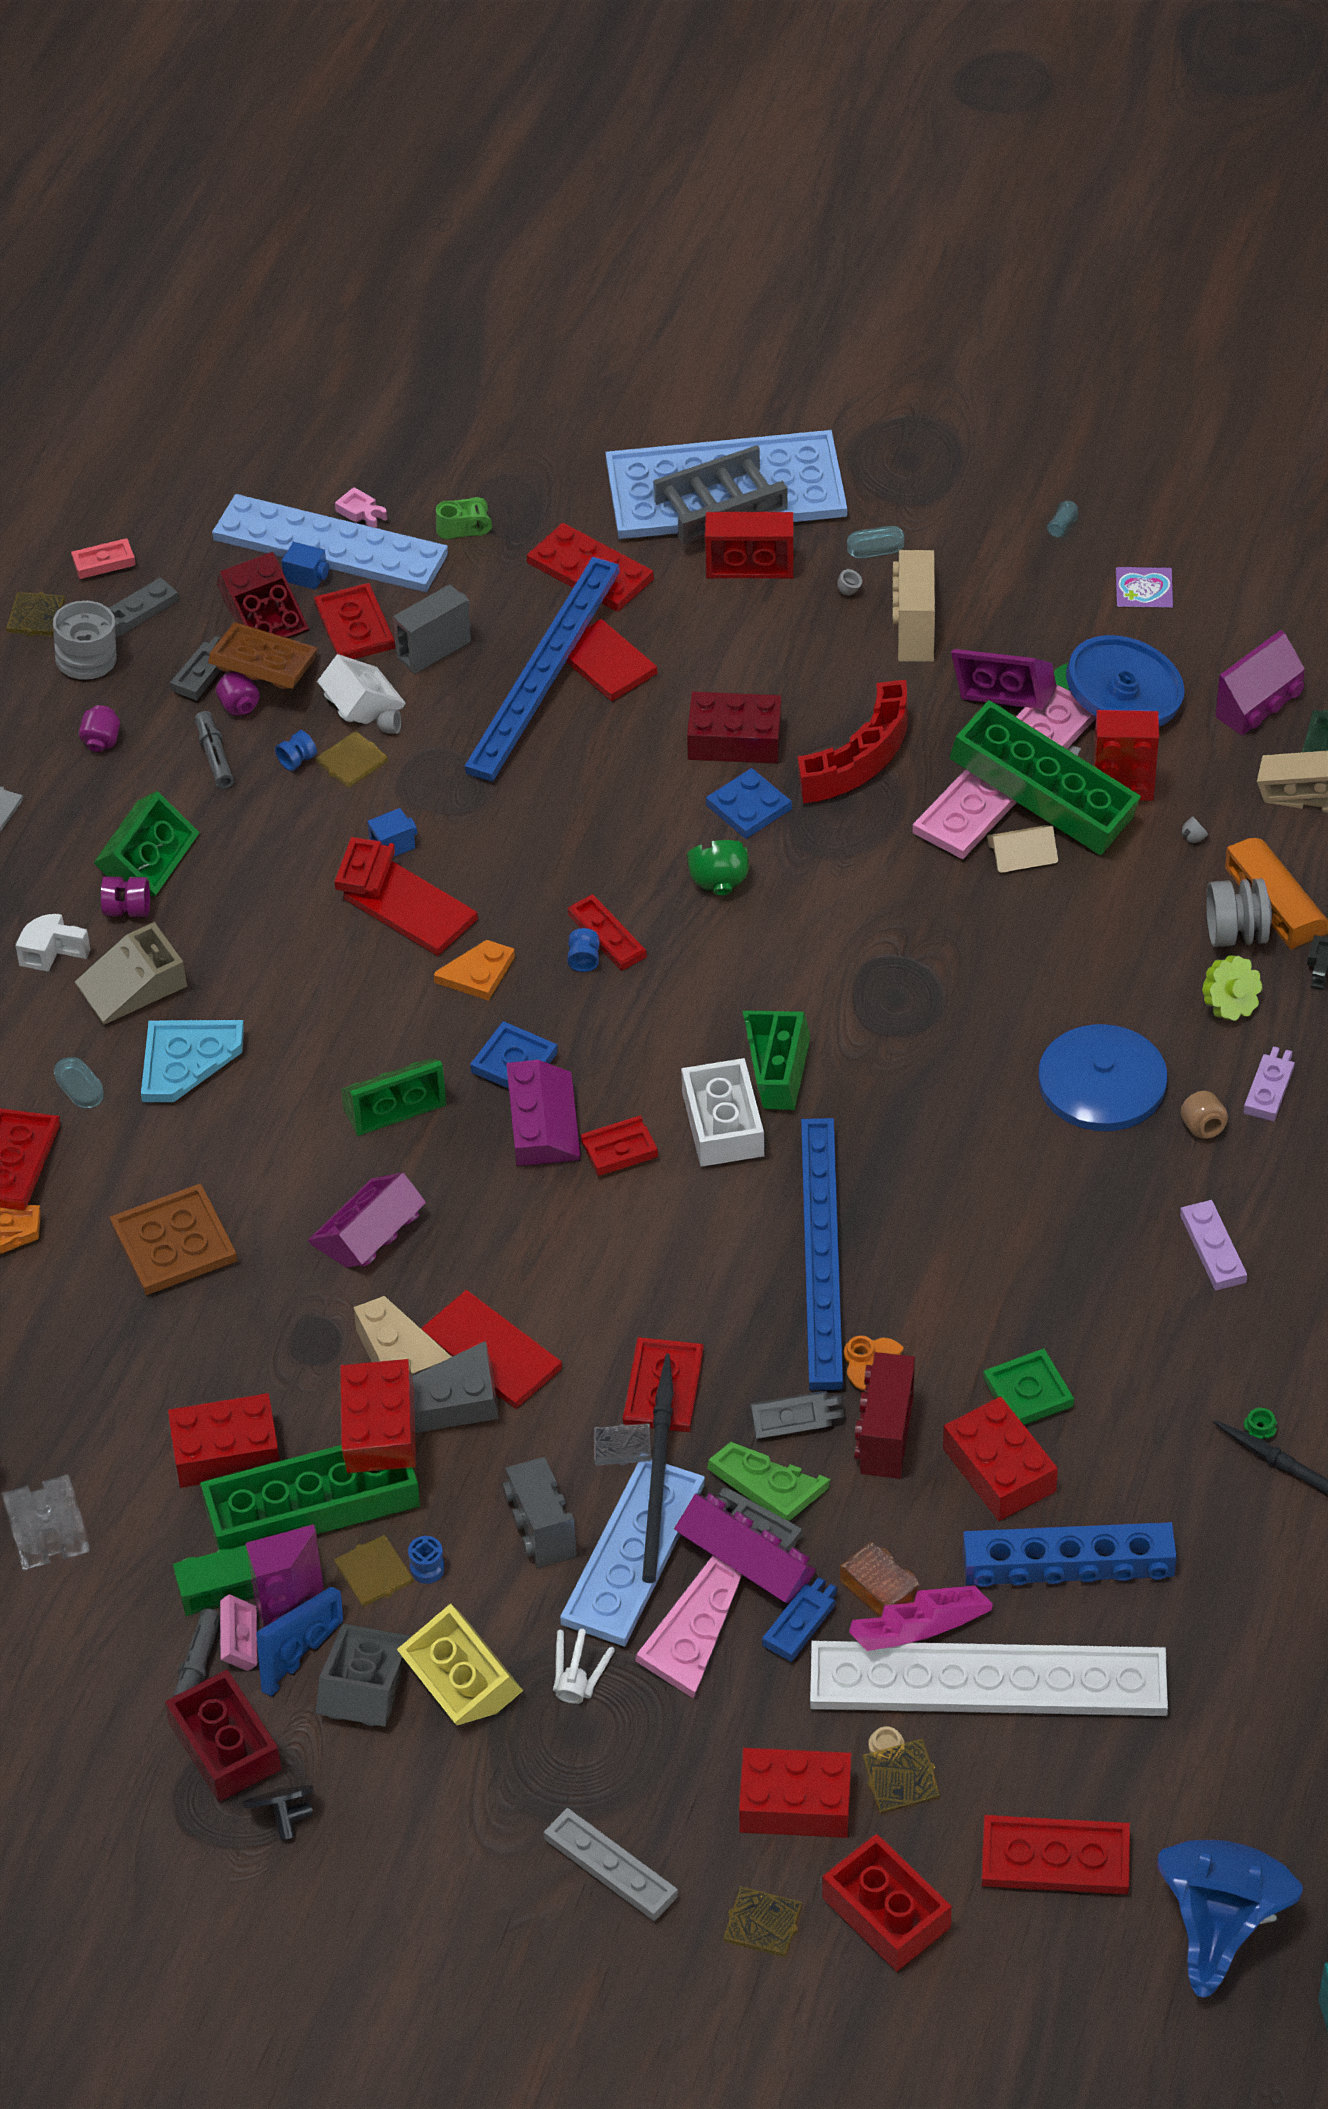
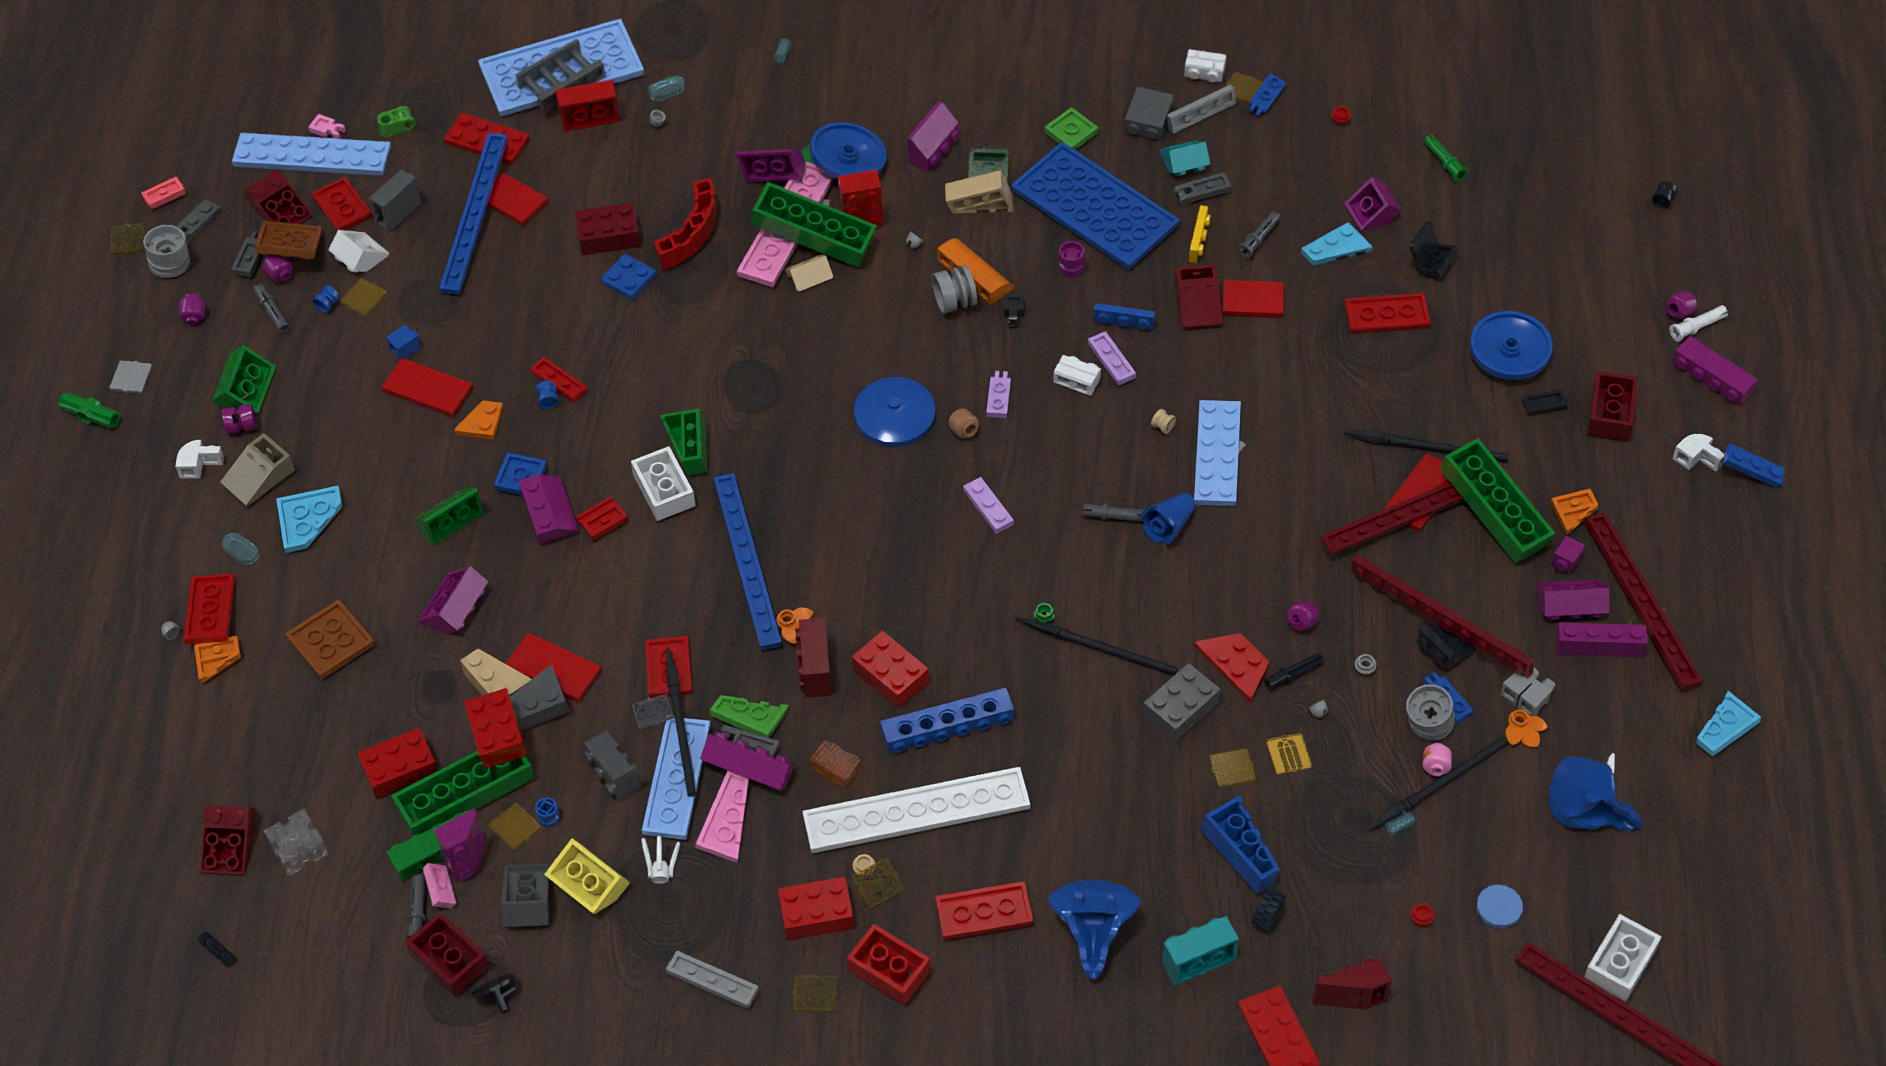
camera: 15 degrees left, 5 degrees up
(293, 1634) = (476, 878): blue wing -> none
(305, 565) = (299, 173): blue brick -> none
(364, 866) = (391, 368): red plate -> none
(389, 721) = (382, 267): light grey hinge -> none
(719, 867) = (621, 323): green cylinder -> none
(794, 1414) = (756, 668): dark grey hinge -> none
(800, 1619) = (791, 798): blue hinge -> none
(914, 605) = (702, 125): tan wedge -> none
(929, 1615) = (870, 779): dark pink slope -> none
(1029, 1386) = (897, 619): green plate -> none
(1144, 587) = (844, 86): sticker -> none
(1232, 988) = (961, 338): lime plant -> none

